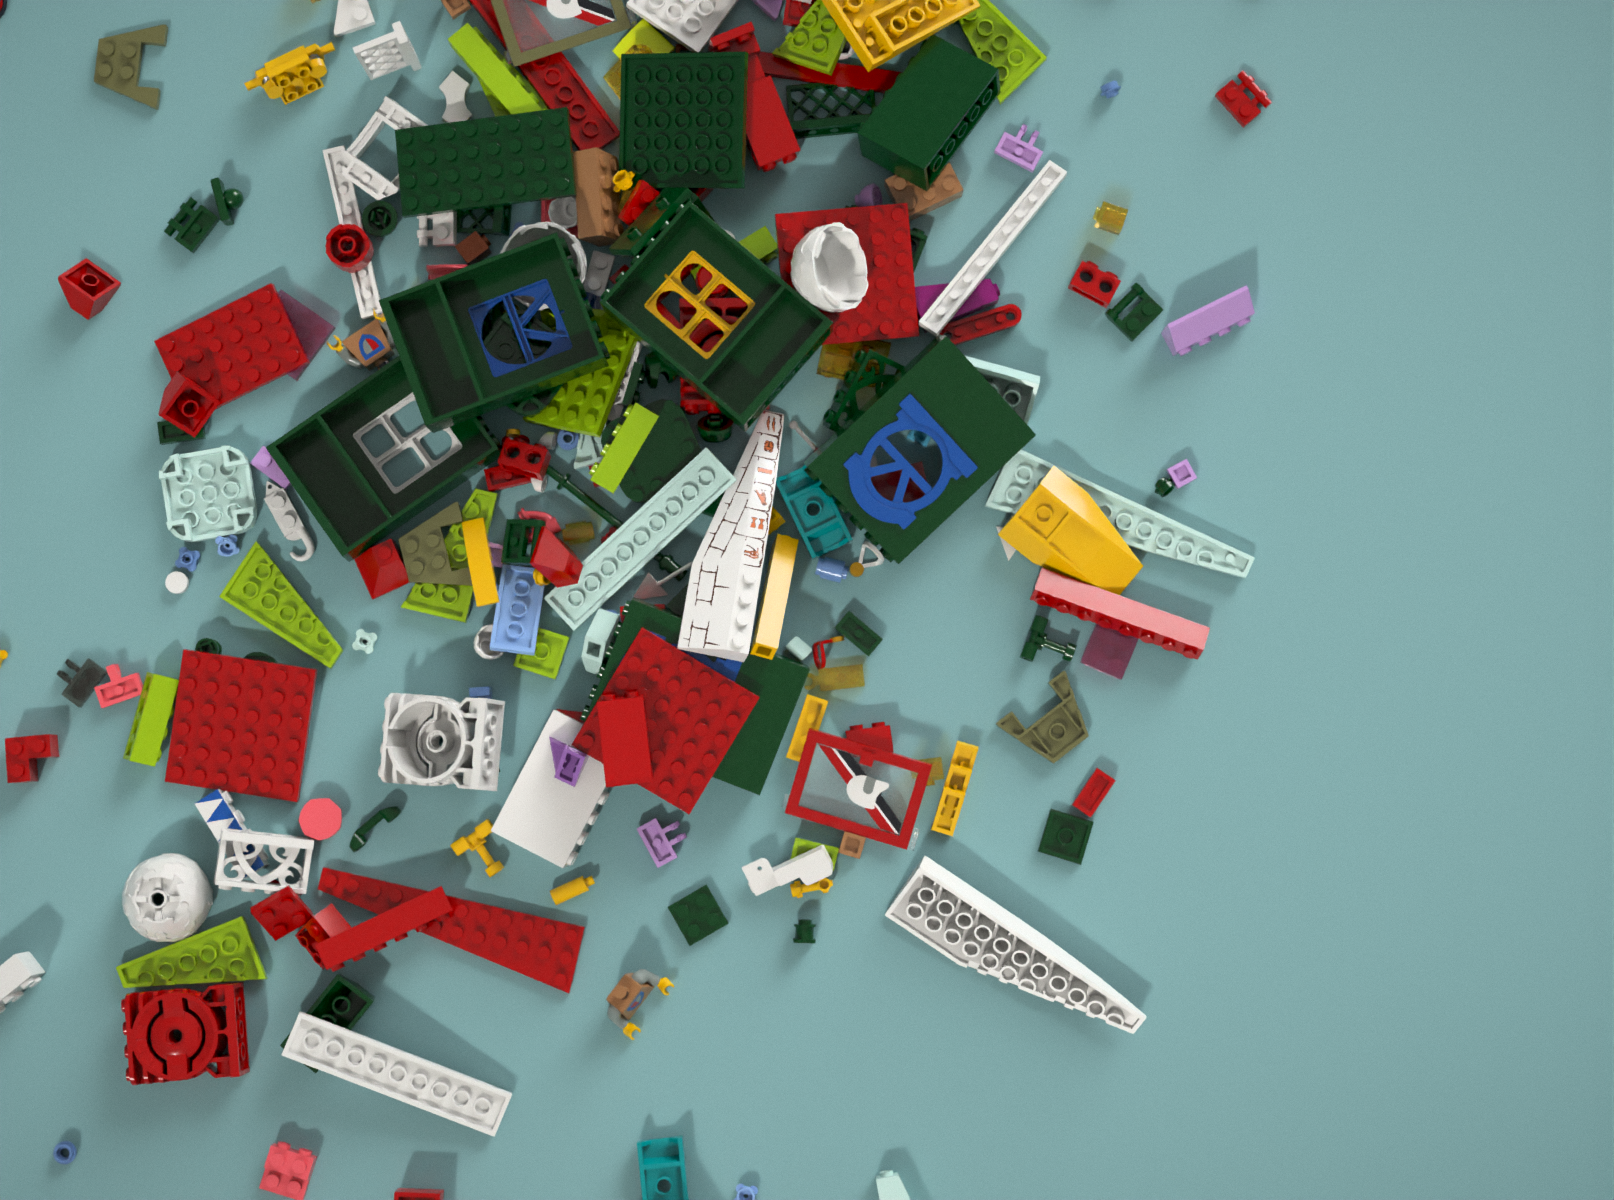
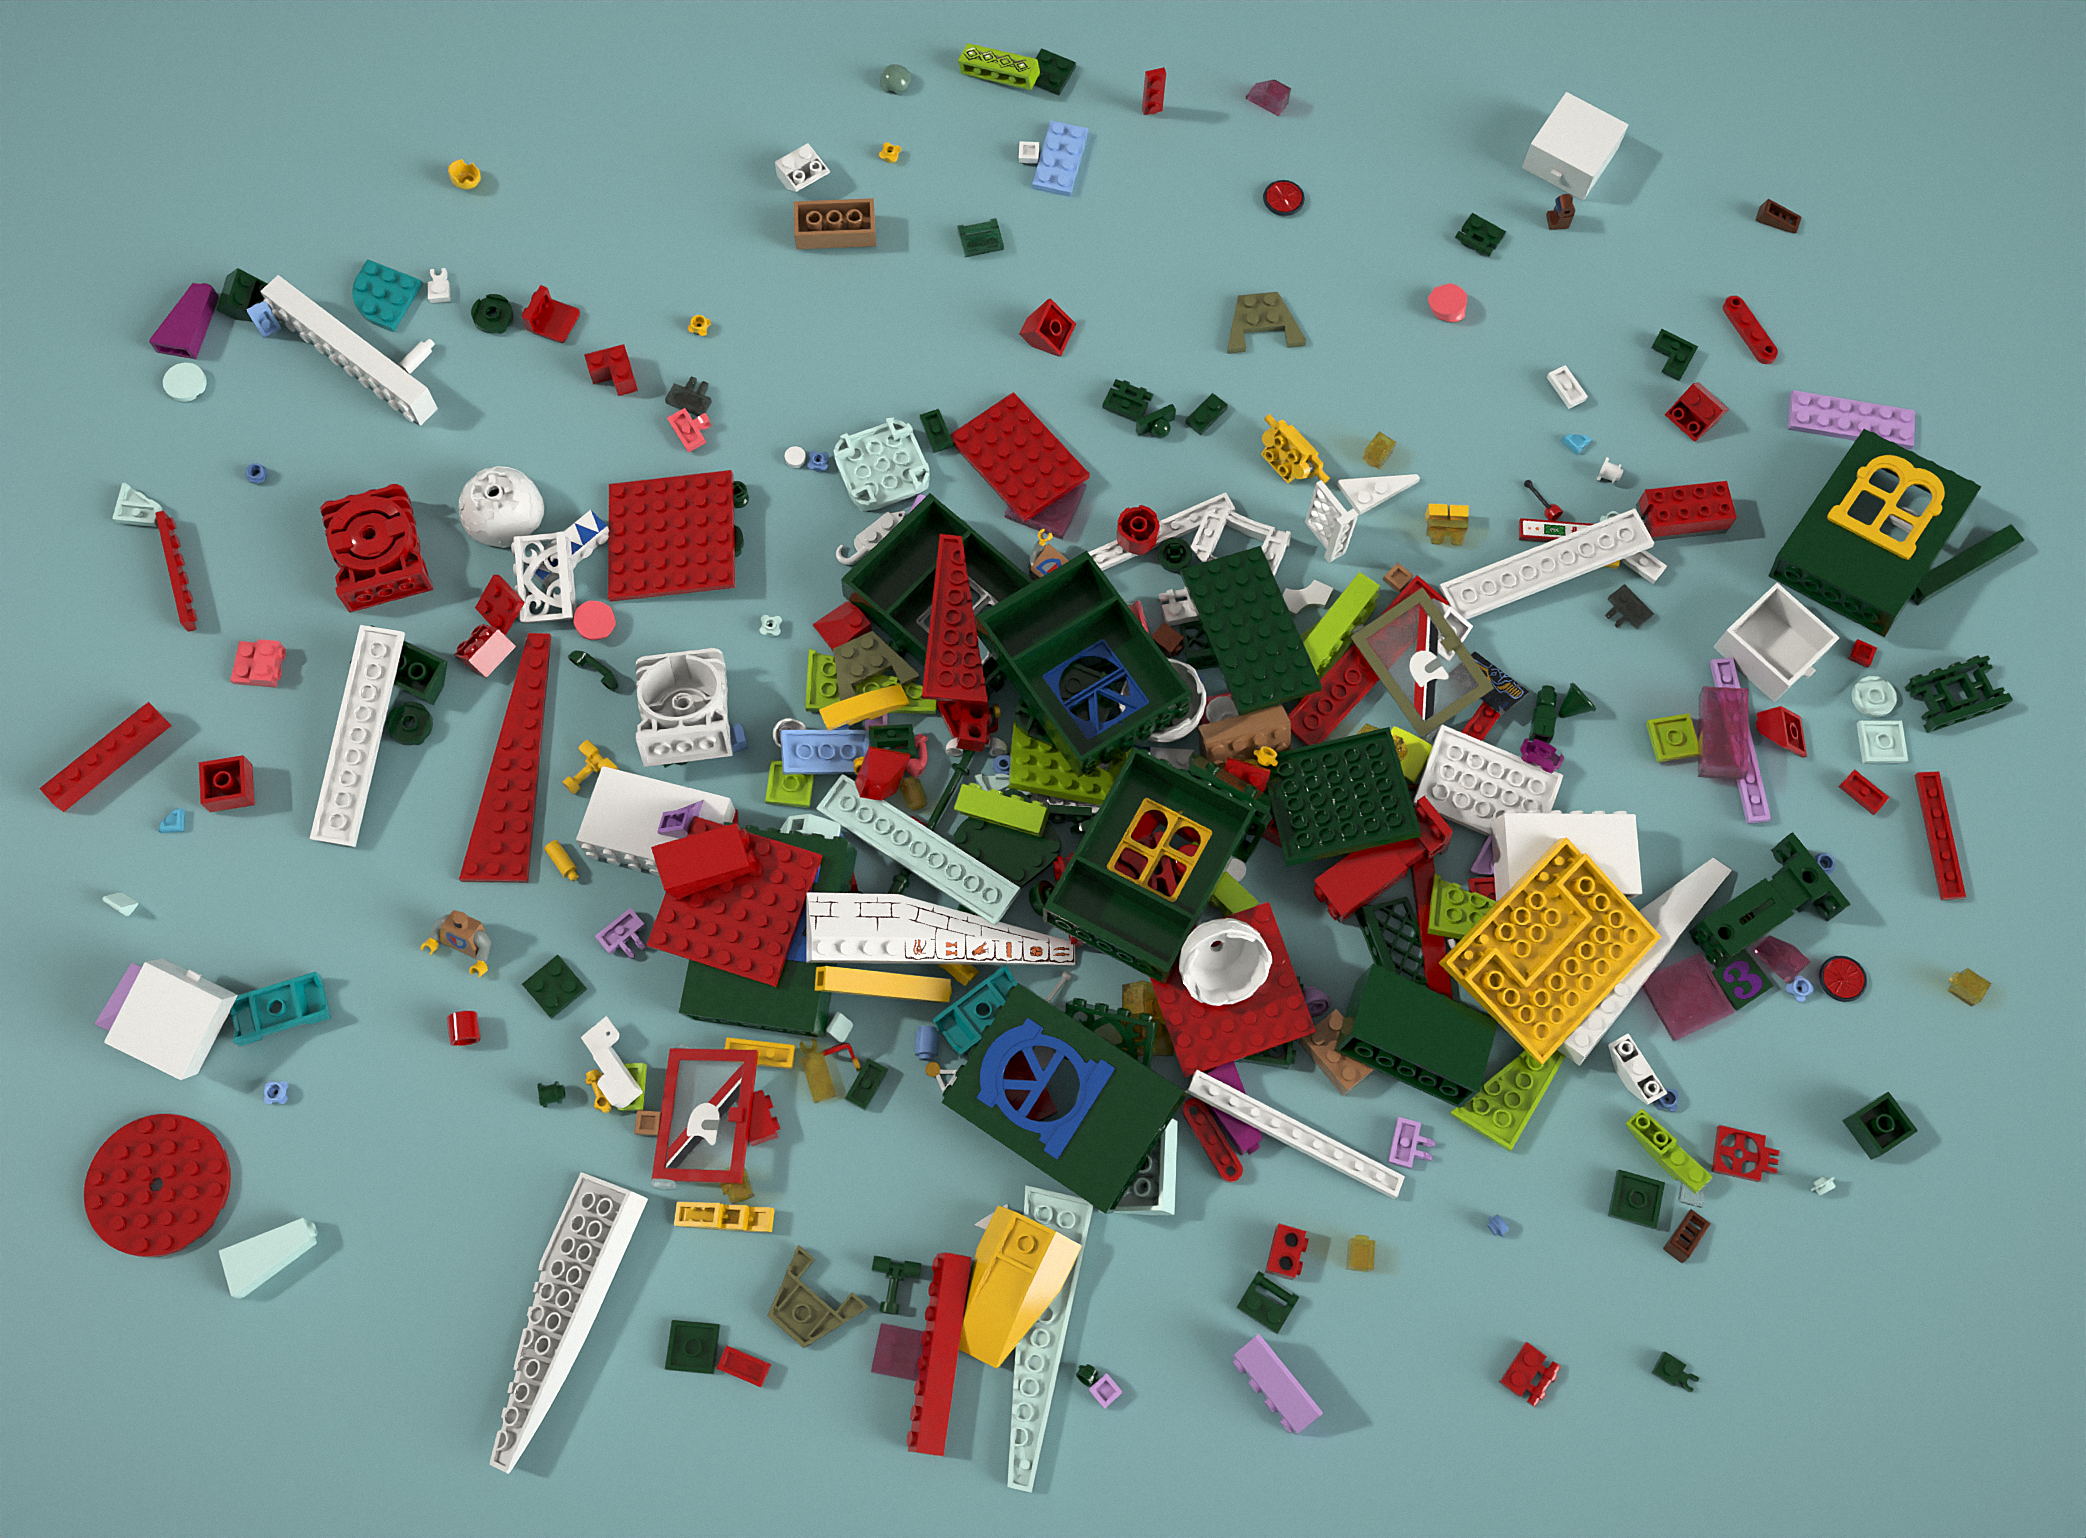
camera: 75 degrees right, 15 degrees down
(151, 719) = (662, 459): lime brick -> none
(187, 404) = (958, 426): red slope -> none
(207, 957) = (450, 552): lime wing -> none
(224, 550) = (833, 487): light blue plate -> none
(225, 148) = (1206, 414): none -> dark green plate
(270, 599) = (792, 539): lime wing -> none
(383, 928) = (495, 692): red brick -> none
(403, 1018) = (416, 734): none -> dark green plate
(419, 518) = (898, 647): none -> dark green plate
(447, 459) = (953, 652): none -> red wing
(651, 588) = (872, 872): white piece -> none
(723, 1007) = (463, 1028): none -> red piece

